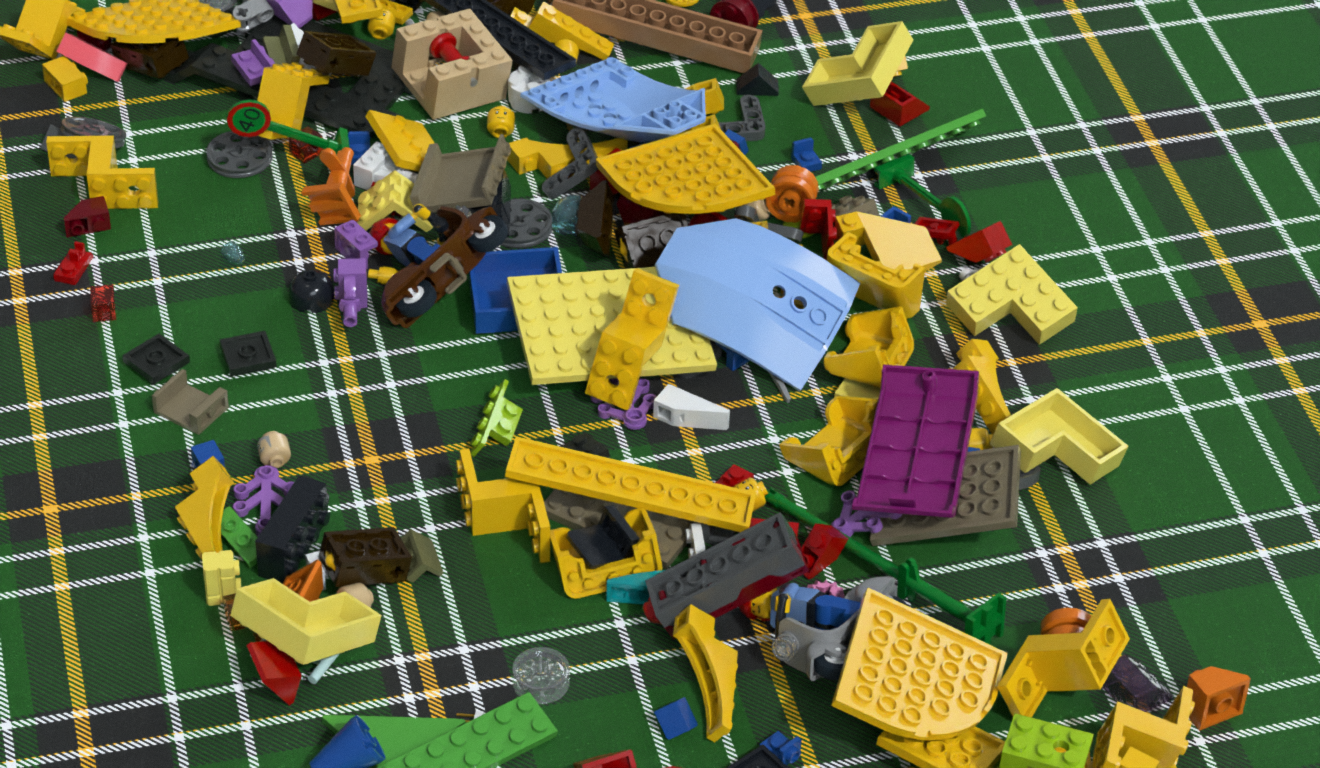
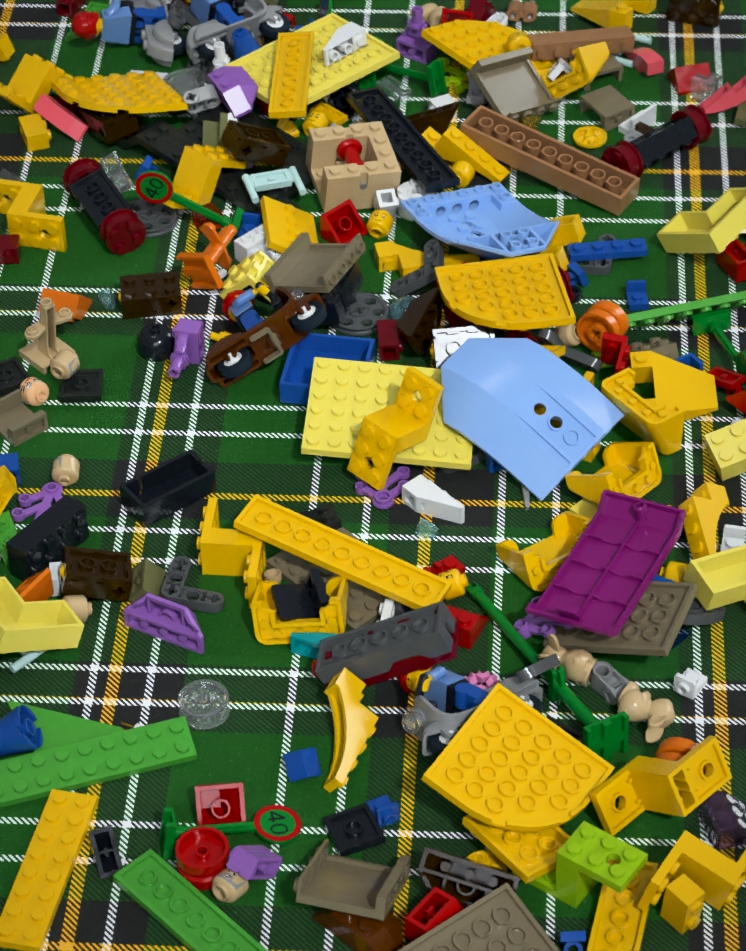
camera: 20 degrees right, 0 degrees up
(92, 127) = (24, 173): dark grey wedge -> none
(183, 109) = (116, 172): none -> clear piece
(188, 148) = (104, 206): none -> brick
(188, 266) = (76, 303): none -> orange slope
(189, 318) = (48, 345): none -> tan piece
(199, 368) = (34, 391): none -> light nougat head
(212, 100) = (145, 166): none -> blue tile
(224, 332) = (64, 364): none -> tan head
(252, 63) = (184, 138): medium lavender bracket -> none
(282, 240) = (150, 295): none -> dark brown piece
(353, 241) = (208, 307): medium lavender bracket -> none
(354, 29) = (288, 126): none -> yellow piece
(367, 91) = (272, 180): none -> light aqua plate
(399, 448) = (168, 487): none -> black piece
(461, 129) = (342, 224): none -> red slope
(462, 560) = (182, 592): none -> dark grey beam
(462, 594) = (165, 621): none -> medium lavender wedge
(499, 95) = (386, 200): none -> white brick
(499, 419) = (267, 479): lime bracket -> none
(556, 521) = (273, 575): none -> tan hinge
(569, 247) = (388, 340): none -> dark red brick
(695, 442) = (426, 529): none -> clear light blue hose
(756, 111) = (607, 249): none -> blue plate
(757, 82) = (623, 224): black slope -> none
(822, 548) = (492, 643): red slope -> none
(884, 569) = (536, 668): none -> dark grey beam
(919, 548) = (577, 662): none -> tan animal
(955, 567) = (607, 682): none -> light grey piece
(1015, 394) = (733, 537): none -> white bracket
(1019, 588) = (640, 707): none -> tan animal
(1035, 552) = (689, 683): none -> white bracket

